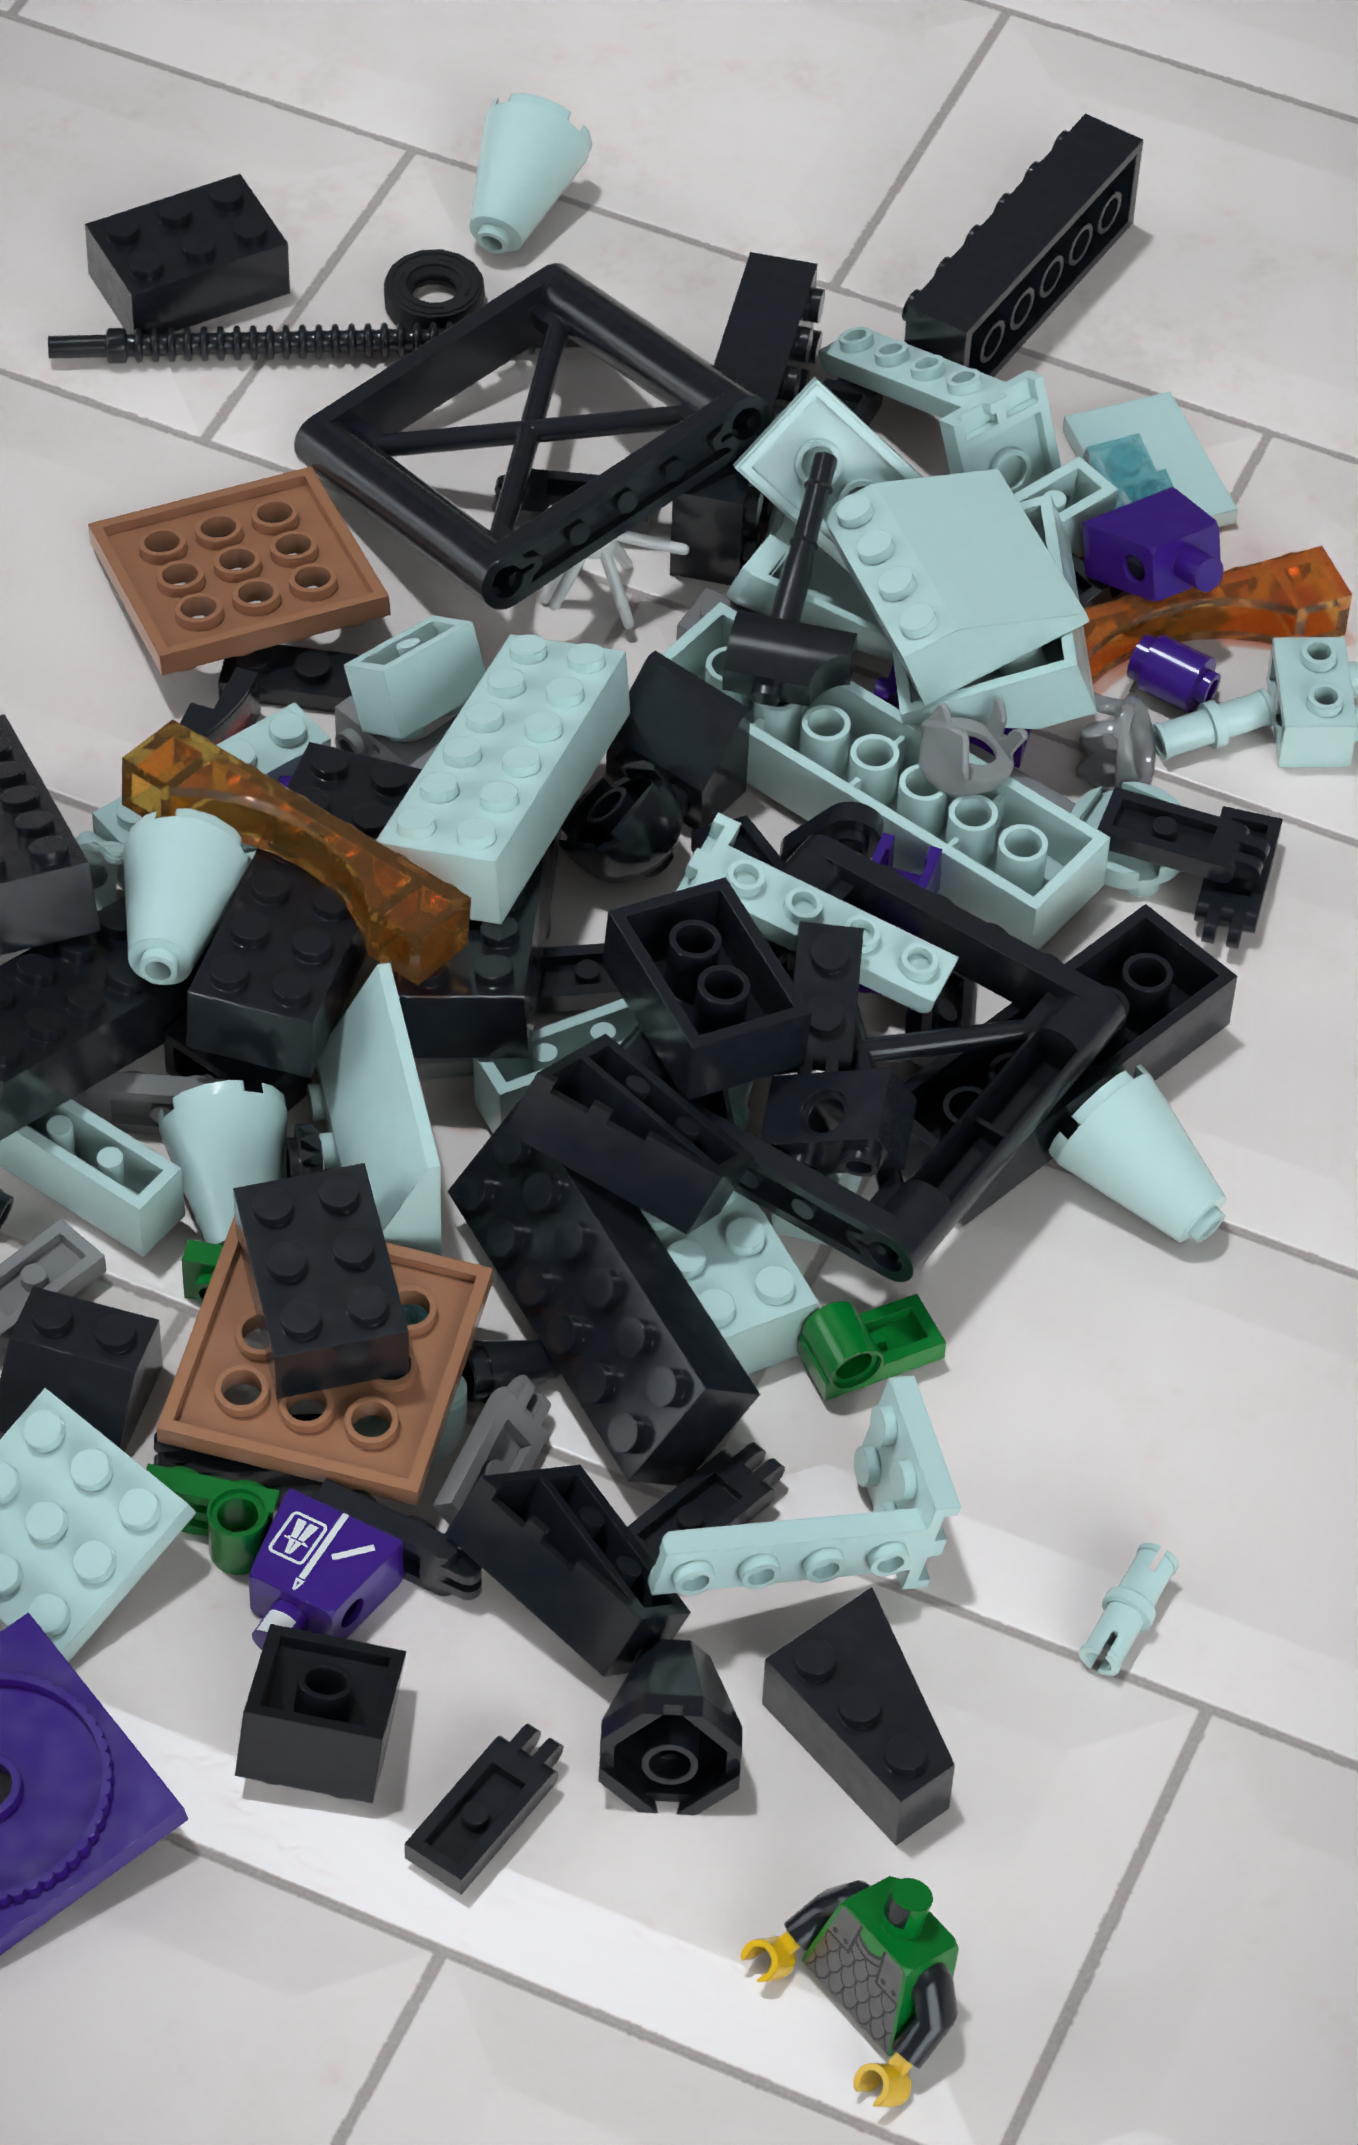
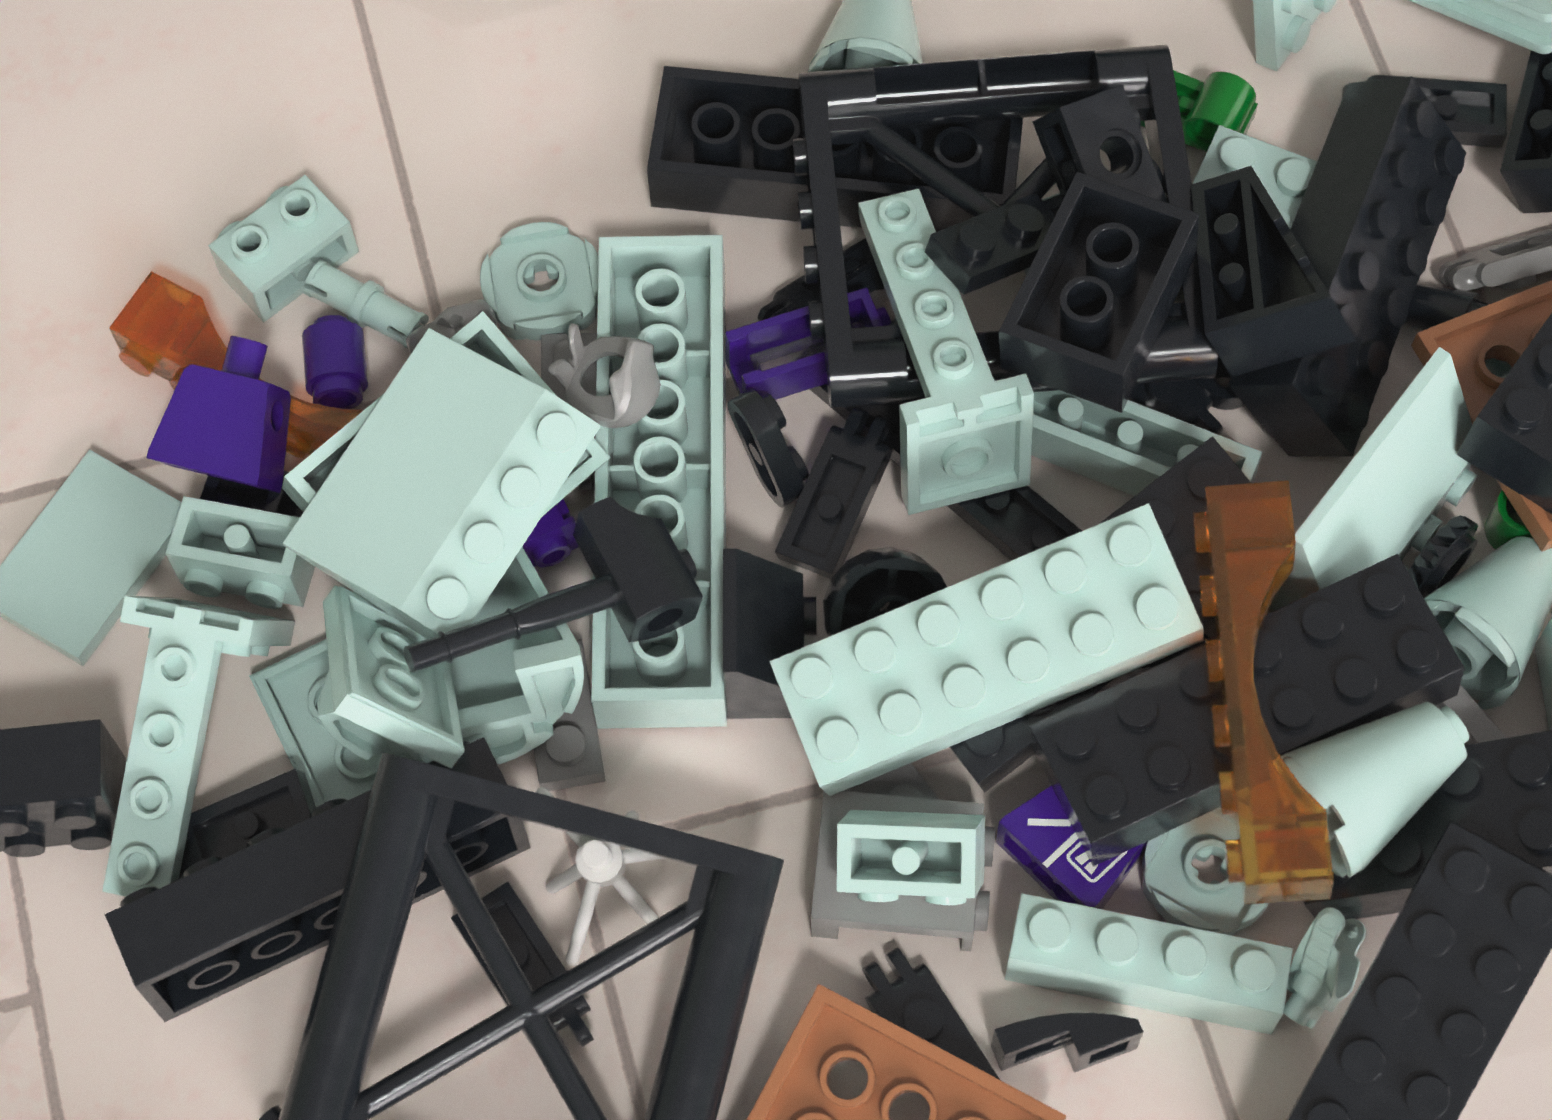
camera: 125 degrees left, 15 degrees up
(1128, 468) = (138, 530): clear light blue slope -> none
(1182, 838) = (540, 217): black hinge -> none
(1238, 901) = (520, 183): black hinge -> none

